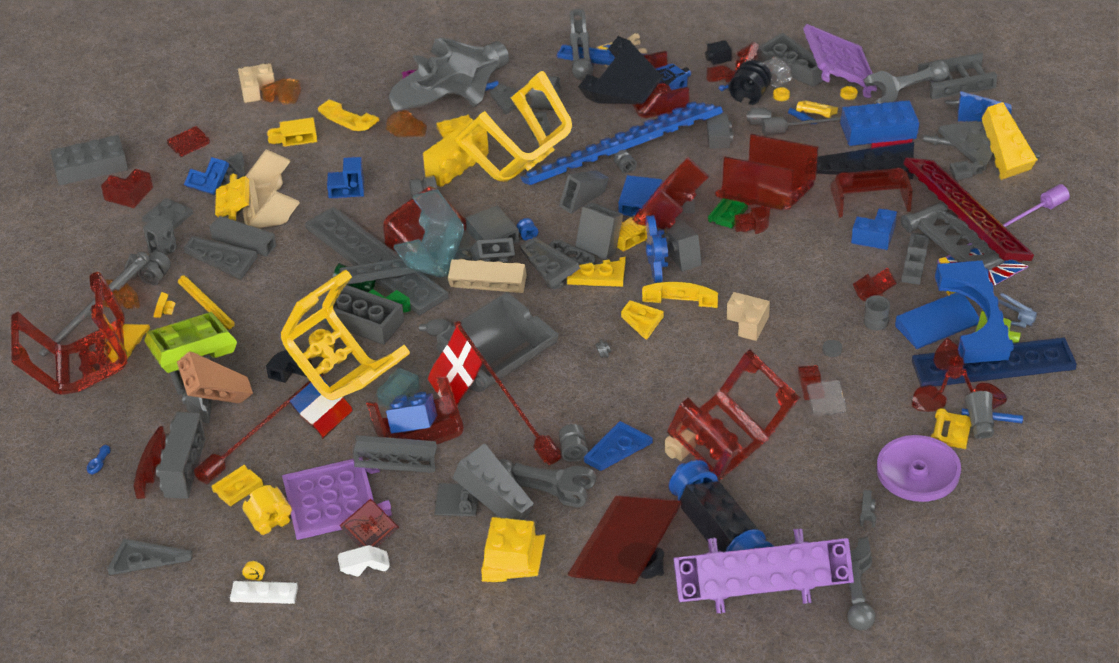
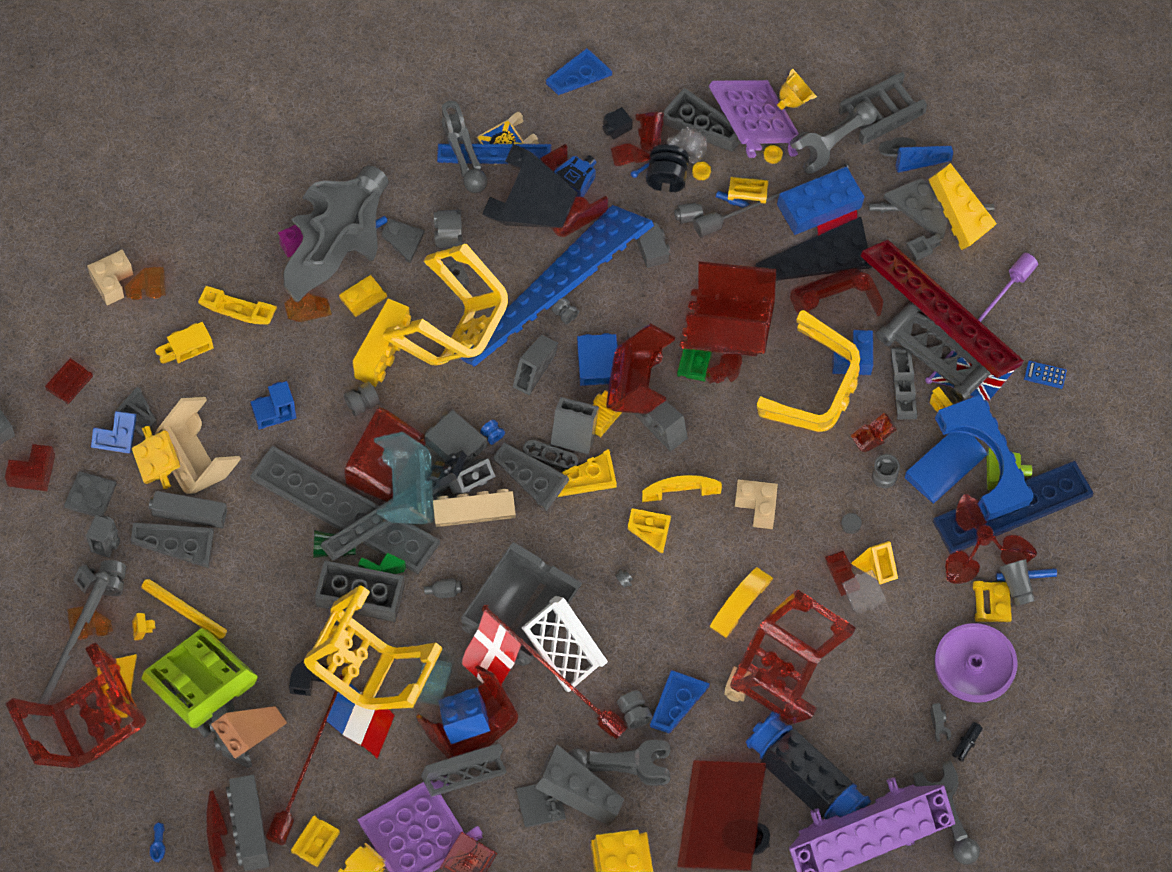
camera: 20 degrees left, 20 degrees up
(471, 237) = (448, 471): none -> black plate
(539, 367) = (574, 630): none -> white fence
(655, 249) = (642, 441): blue plant -> none
(698, 19) = (578, 72): none -> blue wing
(702, 383) = (740, 601): none -> yellow slope
(850, 375) = (880, 560): none -> yellow slope
(857, 237) = (825, 335): none -> yellow windscreen
(880, 54) = (794, 92): none -> yellow helmet
(891, 531) = (967, 741): none -> black axle
(1026, 314) = (1030, 438): sand blue plant -> none
(1054, 275) = (1045, 374): none -> blue tile

